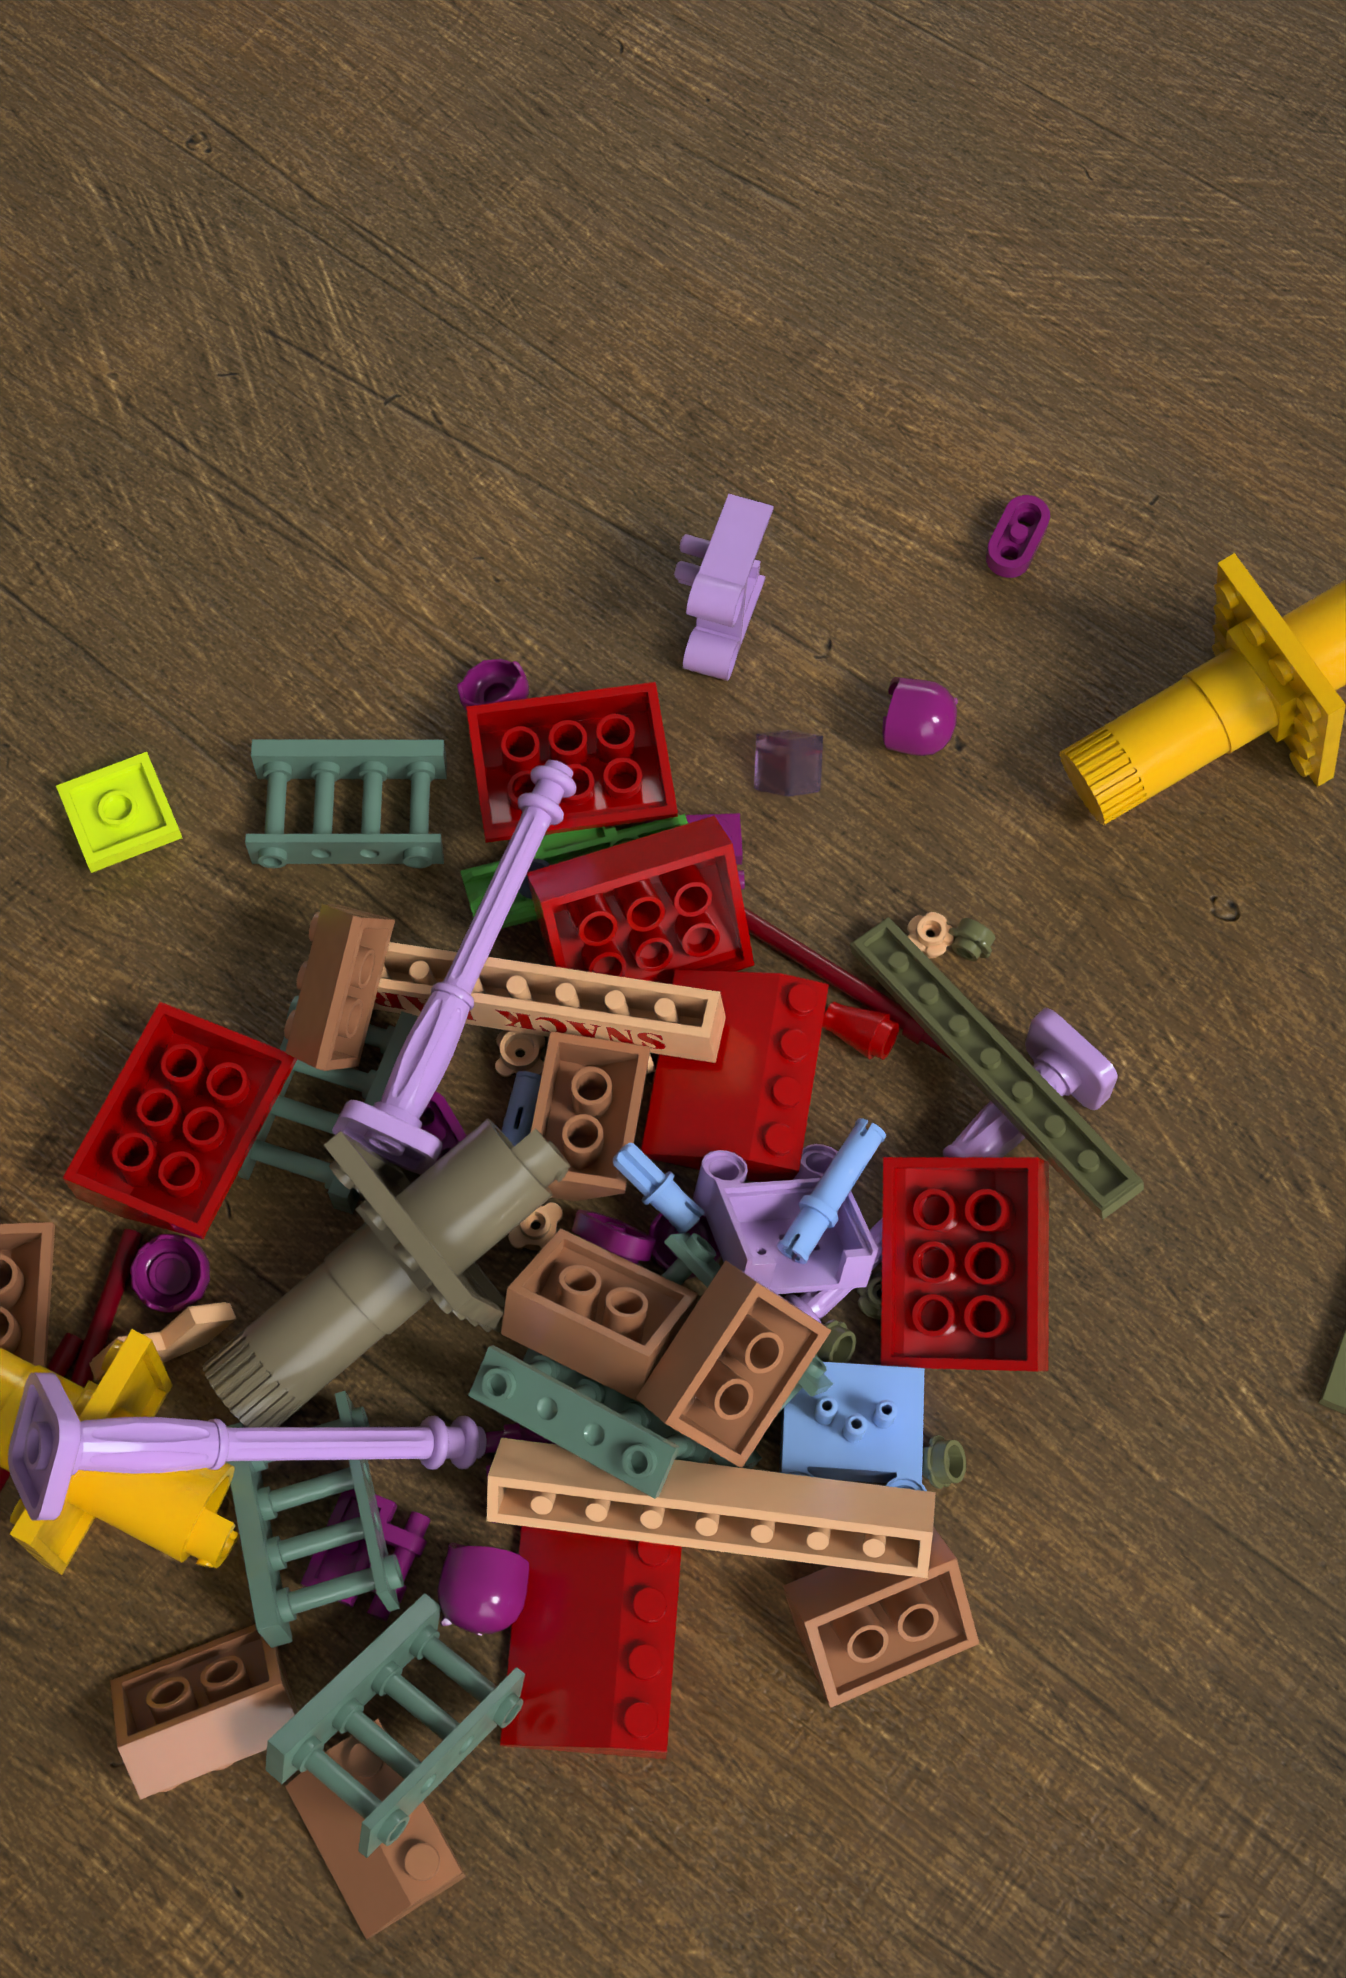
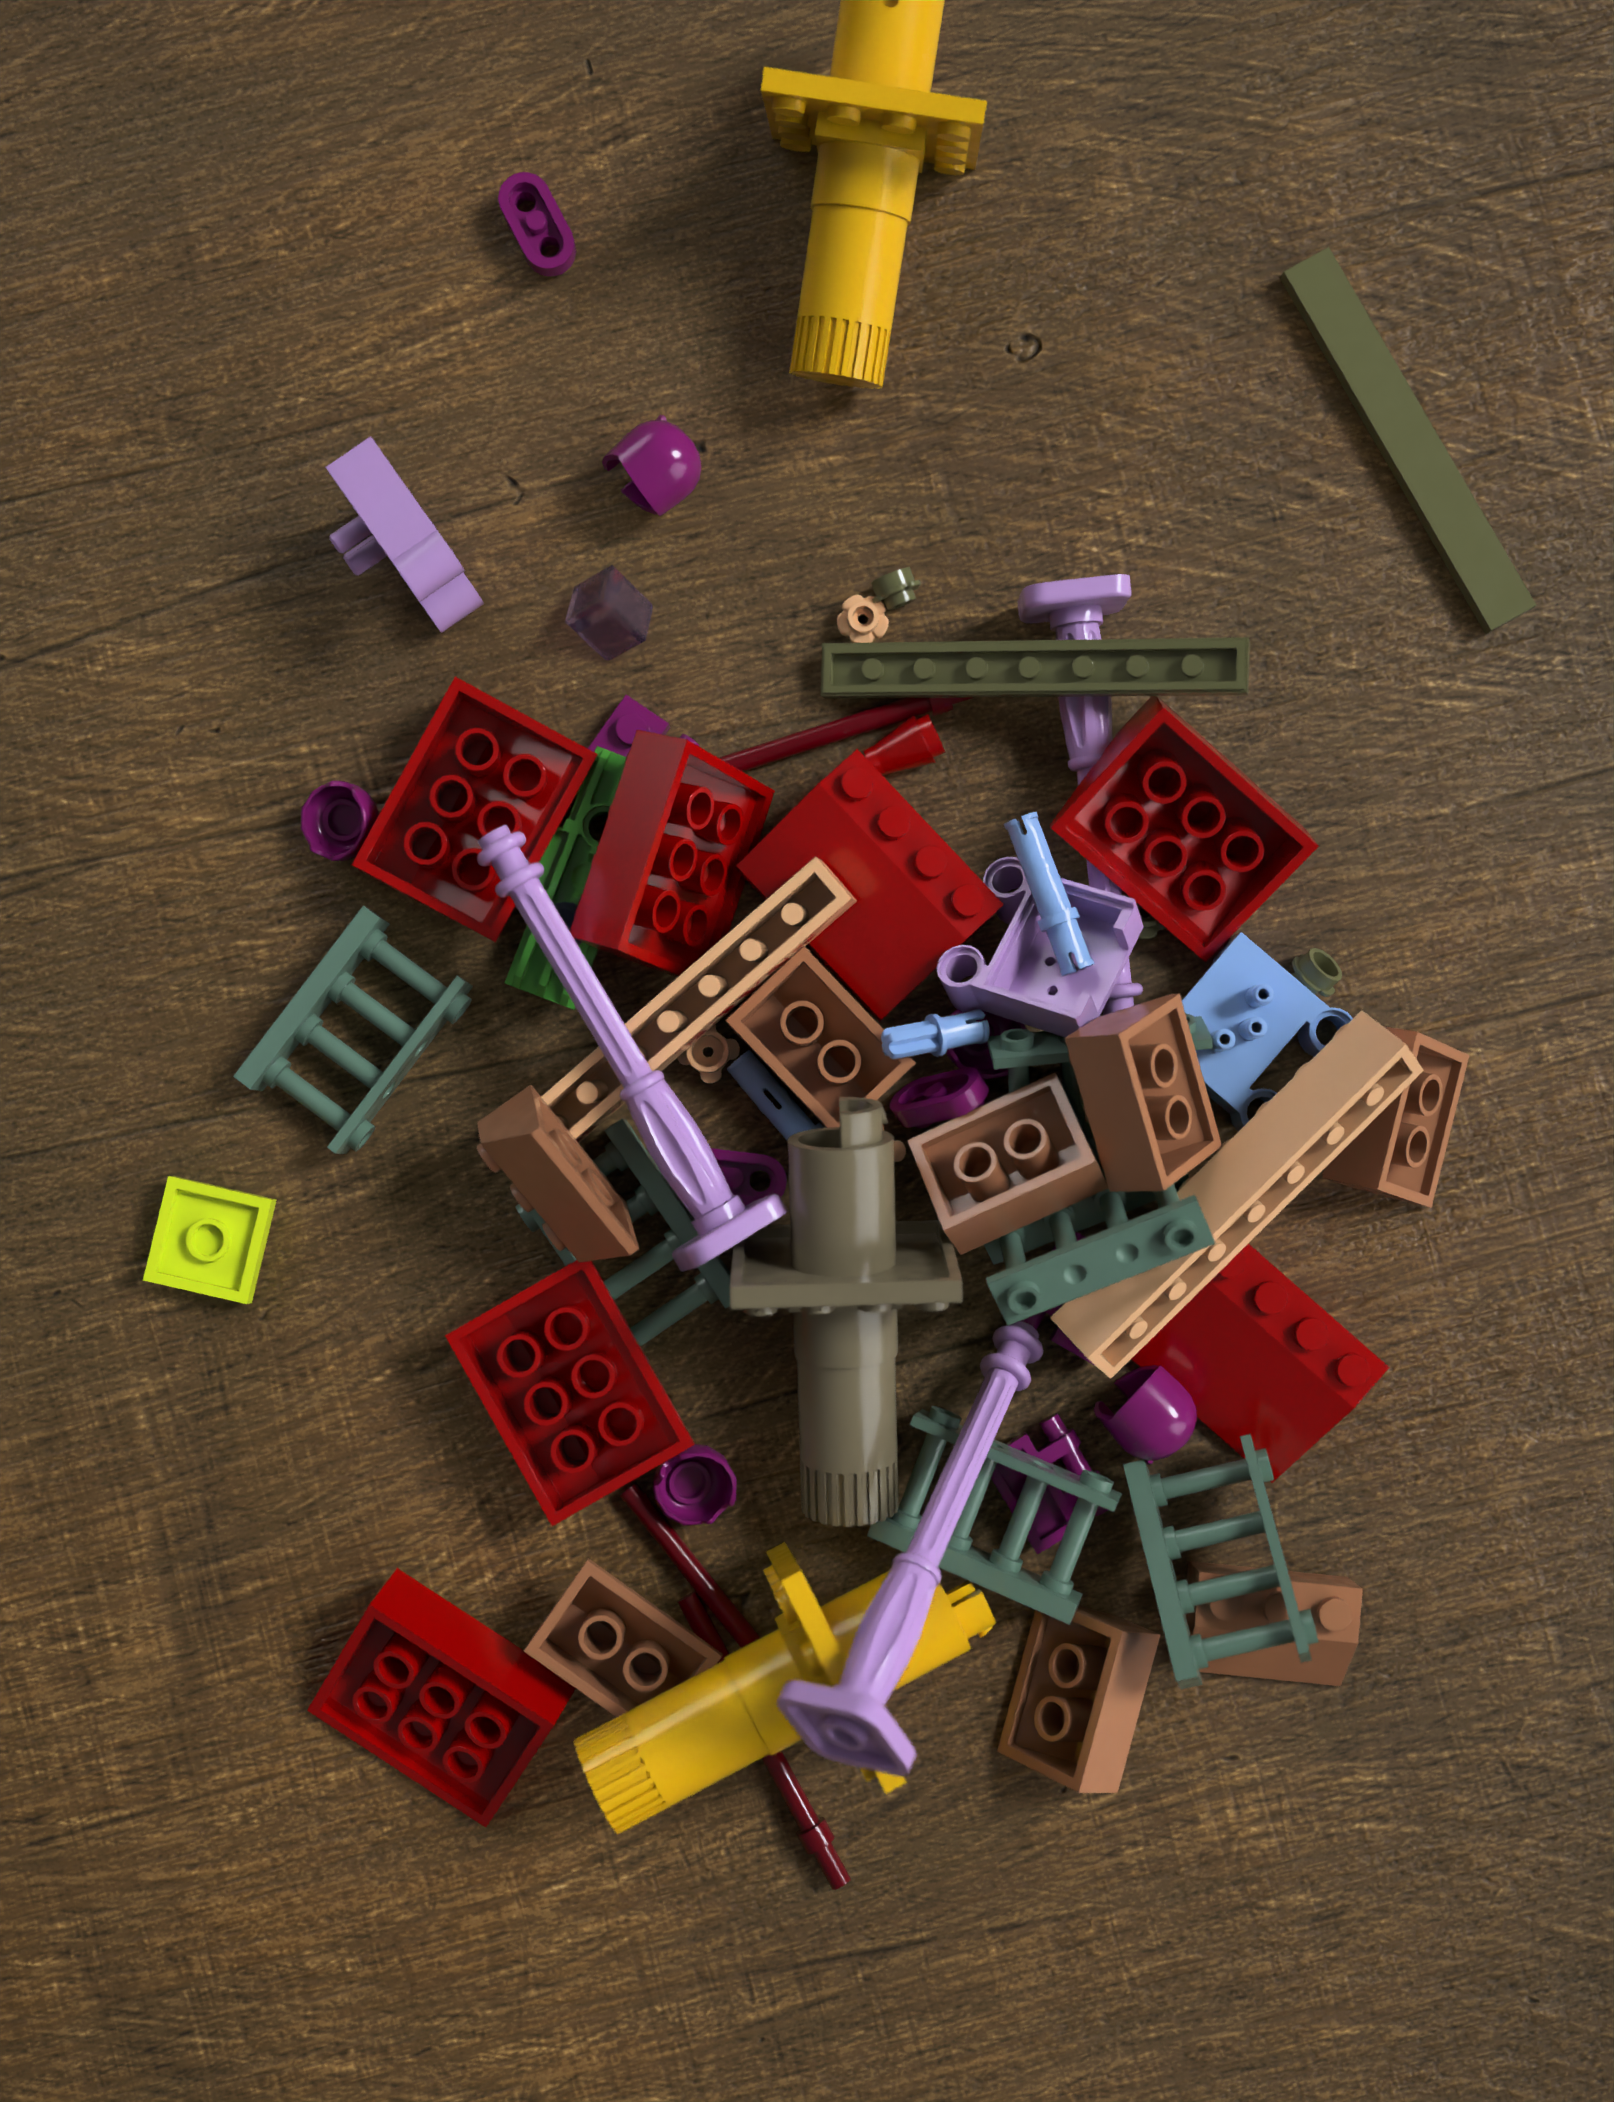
camera: 50 degrees left, 20 degrees up
(187, 1332) = (750, 1530): light nougat tile -> none
(839, 1343) = (1156, 982): olive plate -> none

